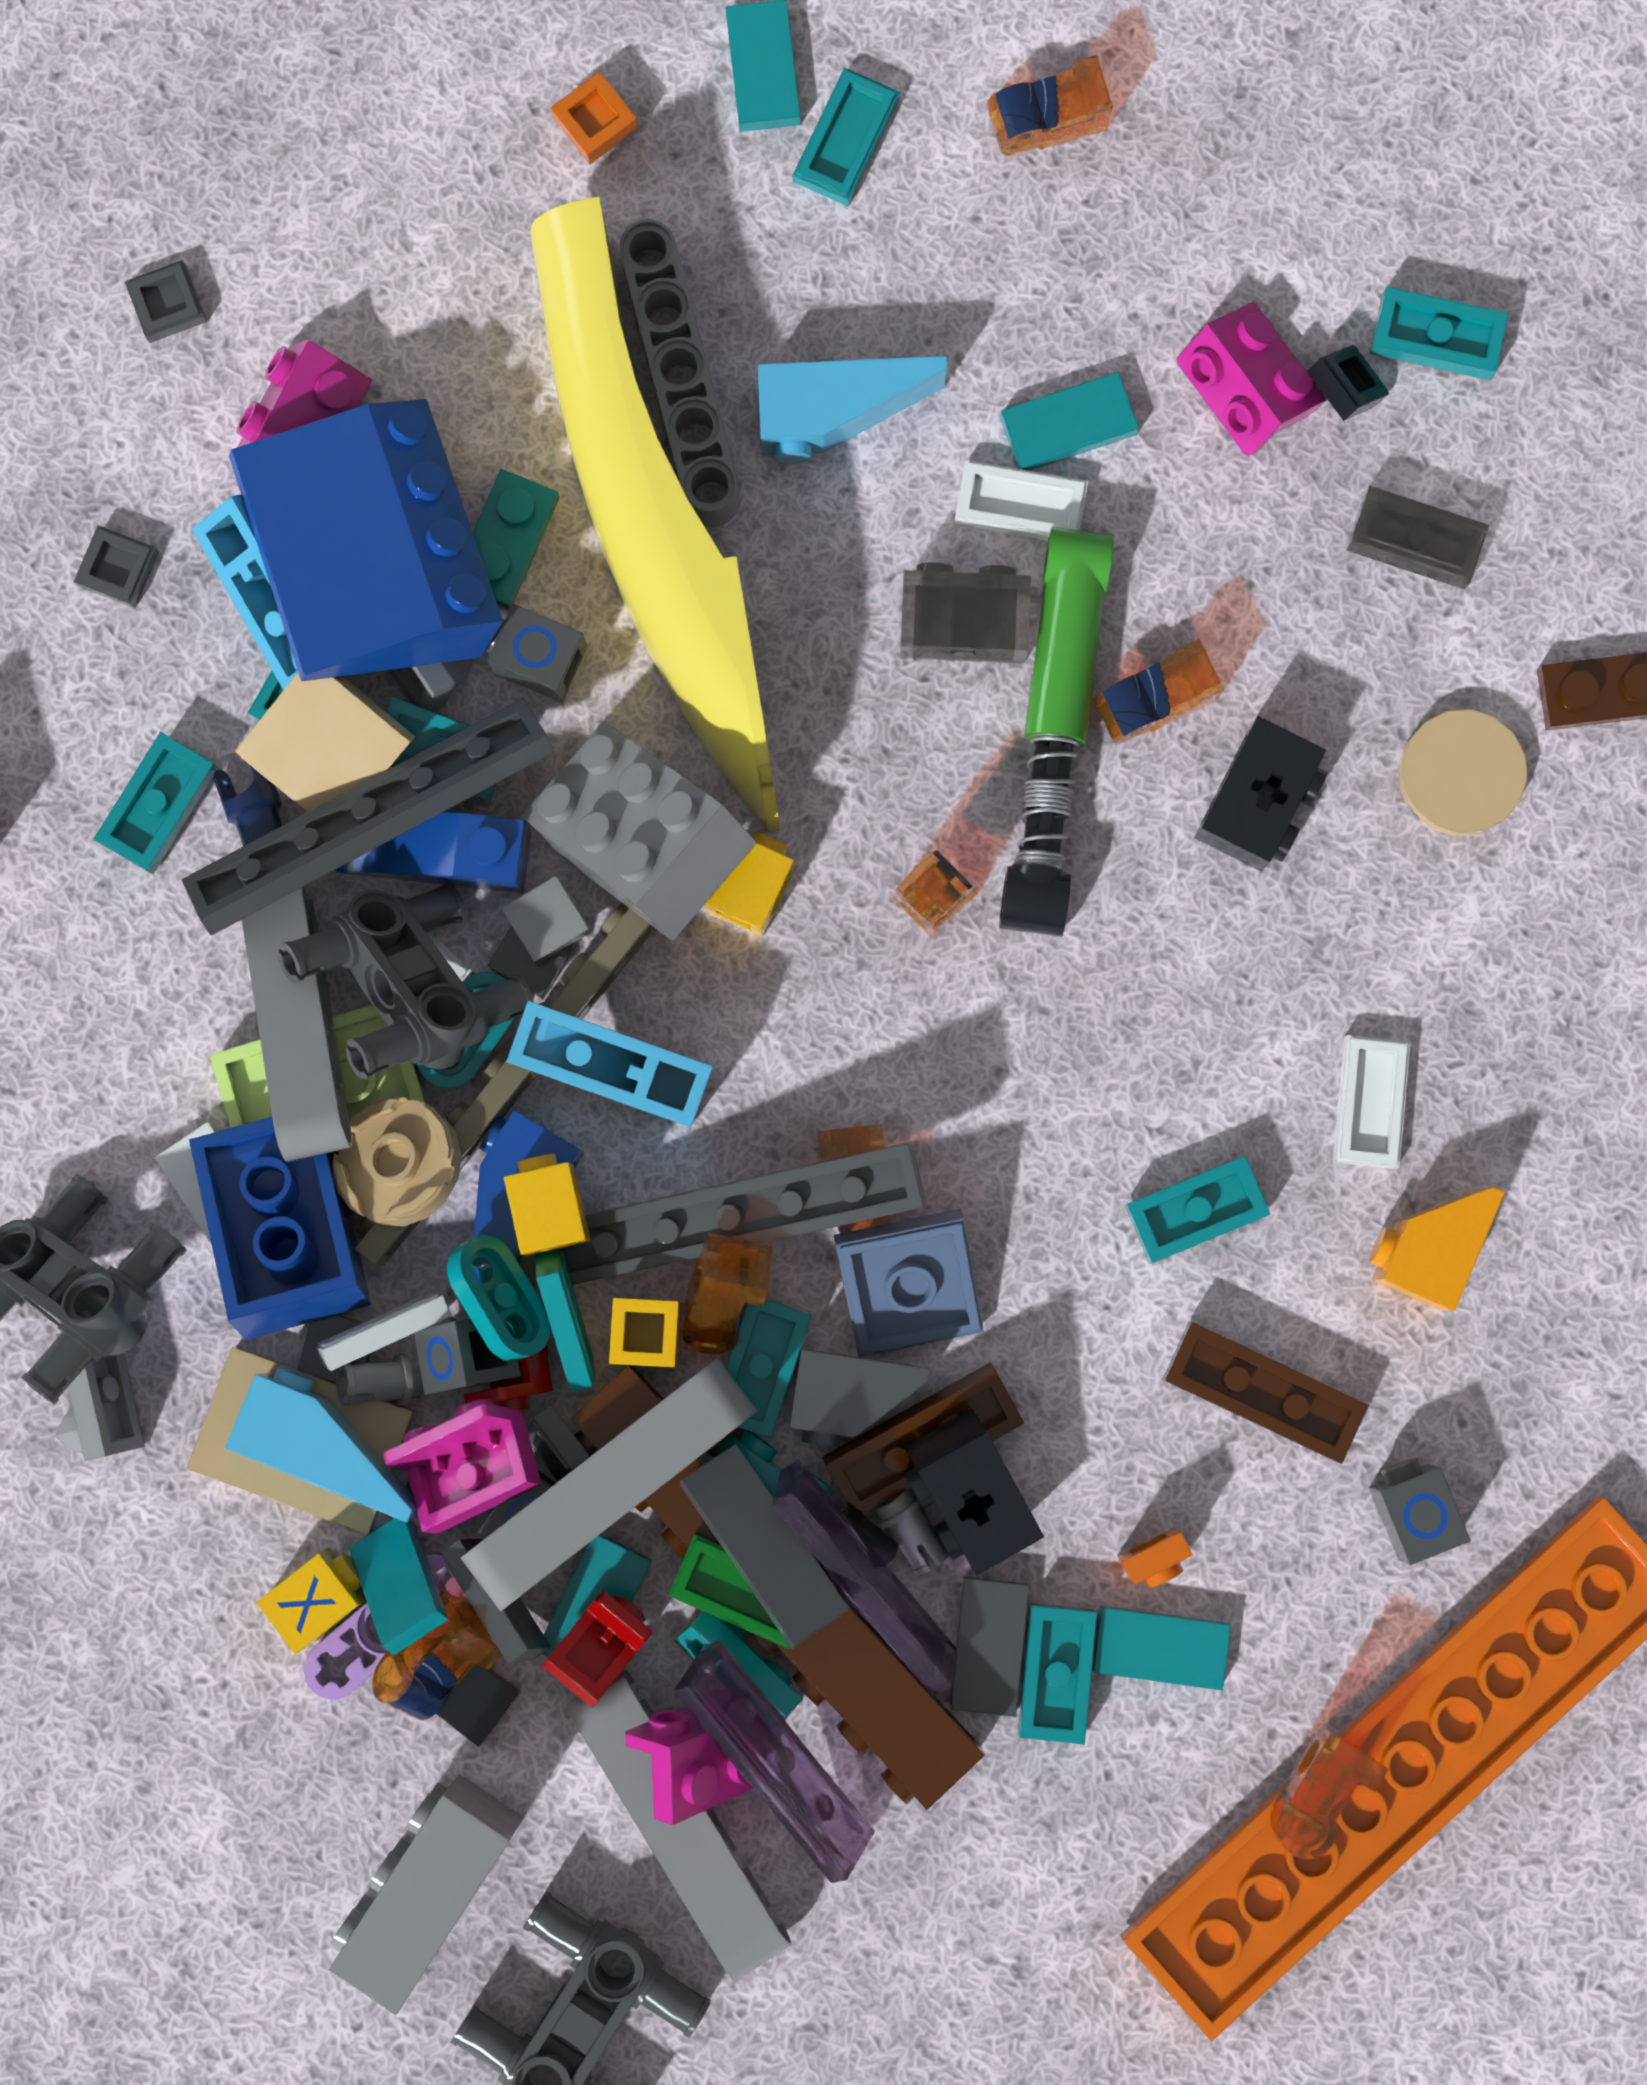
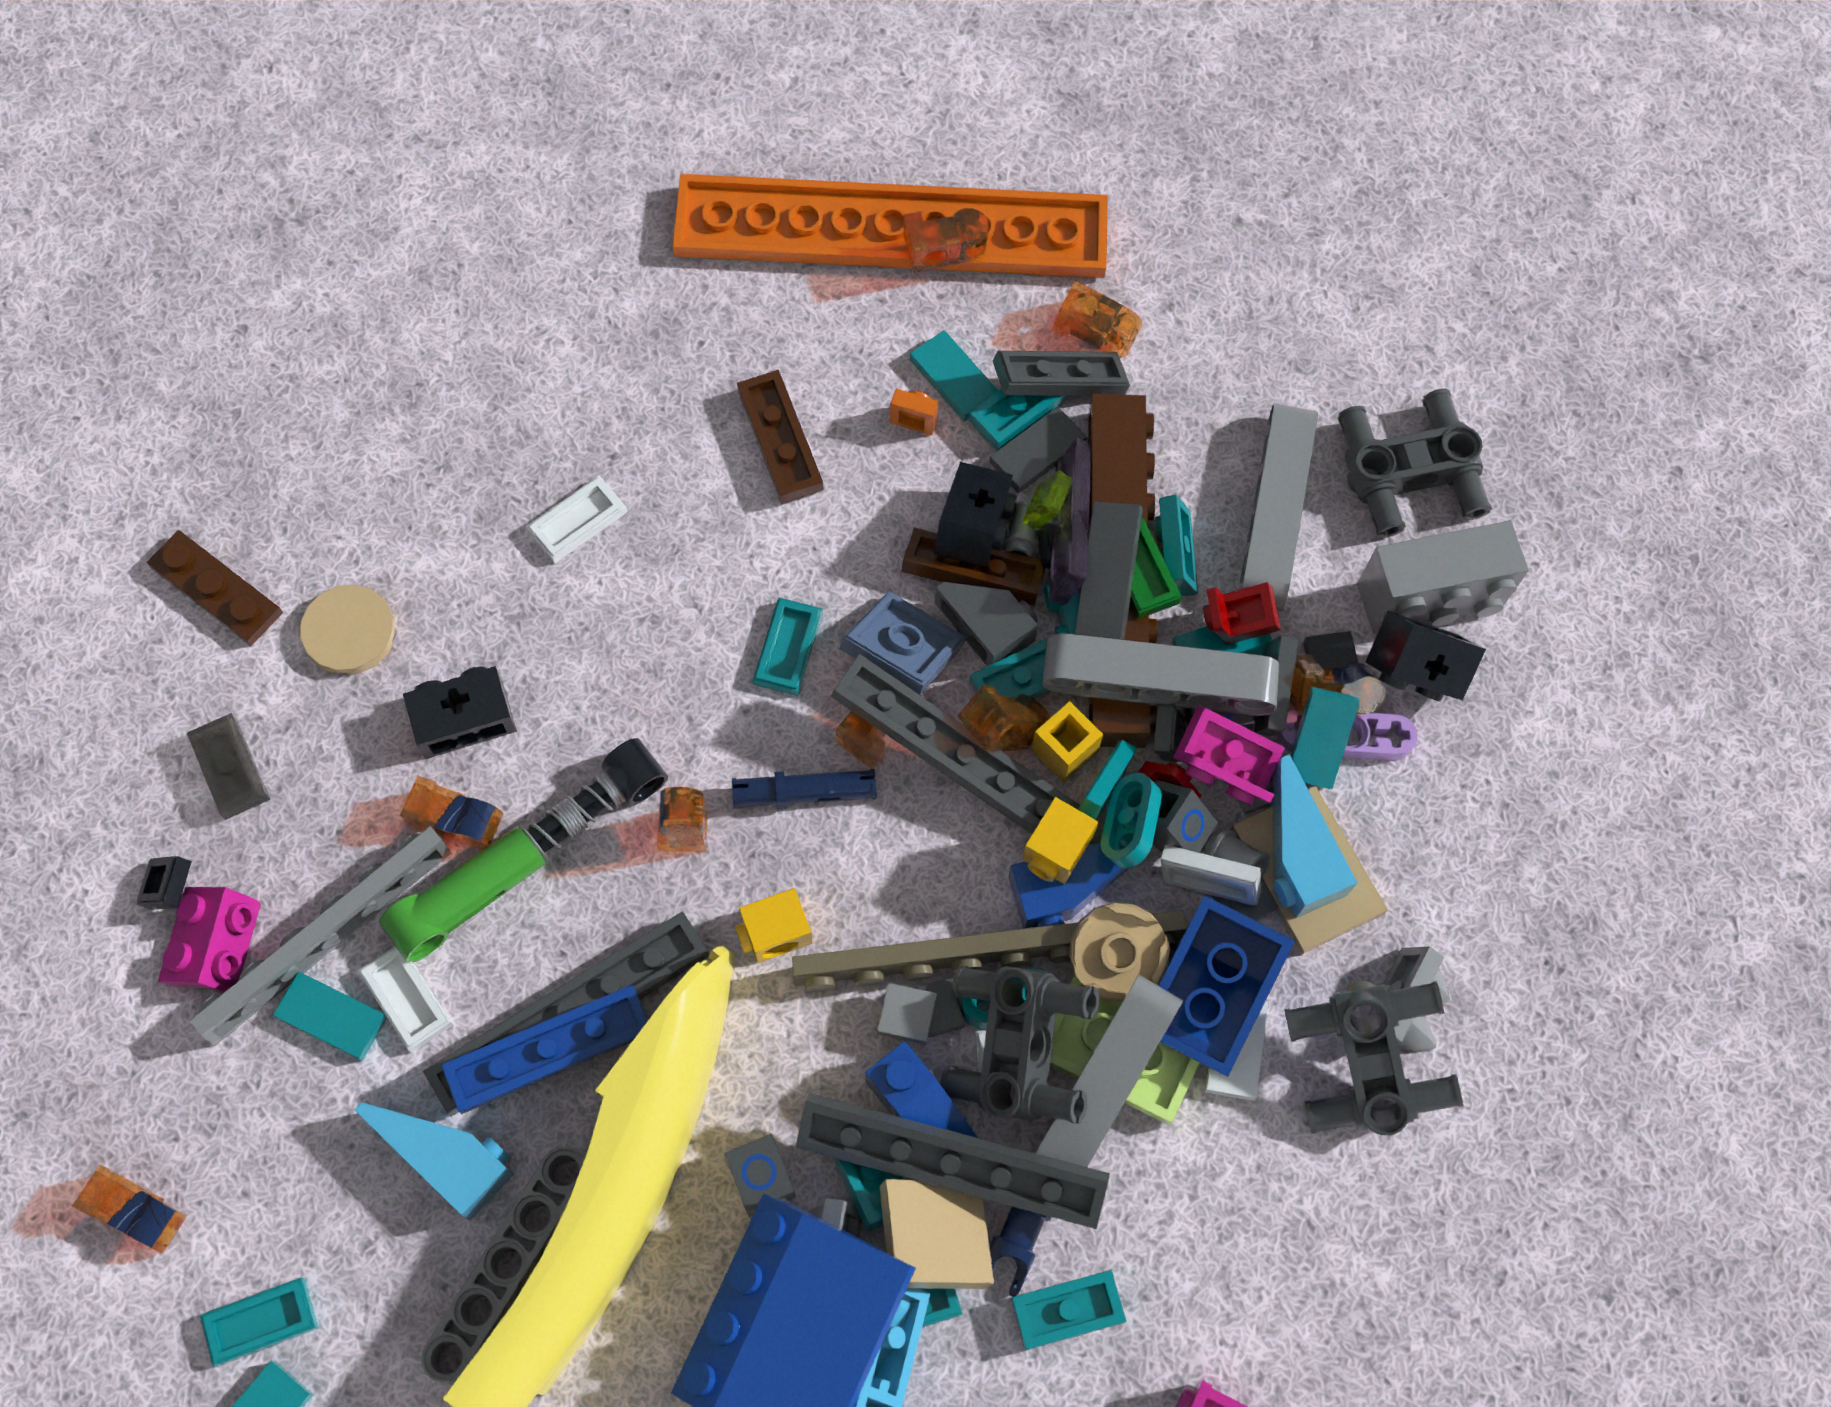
camera: 140 degrees left, 15 degrees down
(313, 1599) = (1375, 777): yellow brick -> none
(367, 1776) = (1425, 657): none -> black brick
(512, 531) = (697, 1273): teal plate -> none
(609, 1063) = (947, 888): medium azure slope -> none
(639, 829) = (806, 1002): light grey brick -> none
(686, 1766) = (1234, 518): dark pink bracket -> none
(774, 1761) = (1201, 482): clear purple tile -> none
(832, 568) = (545, 1049): none -> blue plate
(858, 628) = (643, 963): none -> dark grey plate
(860, 1043) = (803, 788): none -> dark blue pin
(910, 1578) = (1047, 500): none -> clear neon green tile
(965, 614) = (504, 958): clear smoke brick -> none
(1024, 1175) = (787, 646): none -> teal tile
(1044, 1754) = (1060, 373): none -> dark grey tile
(1071, 1864) = (1097, 320): none -> clear orange leg
(1155, 453) = (308, 945): none -> light grey plate
(1197, 1209) = (719, 547): teal plate -> none
(1418, 1511) = (765, 318): dark grey brick -> none
(1436, 1249) = (621, 420): light orange slope -> none
(1438, 333) = (87, 862): teal plate -> none

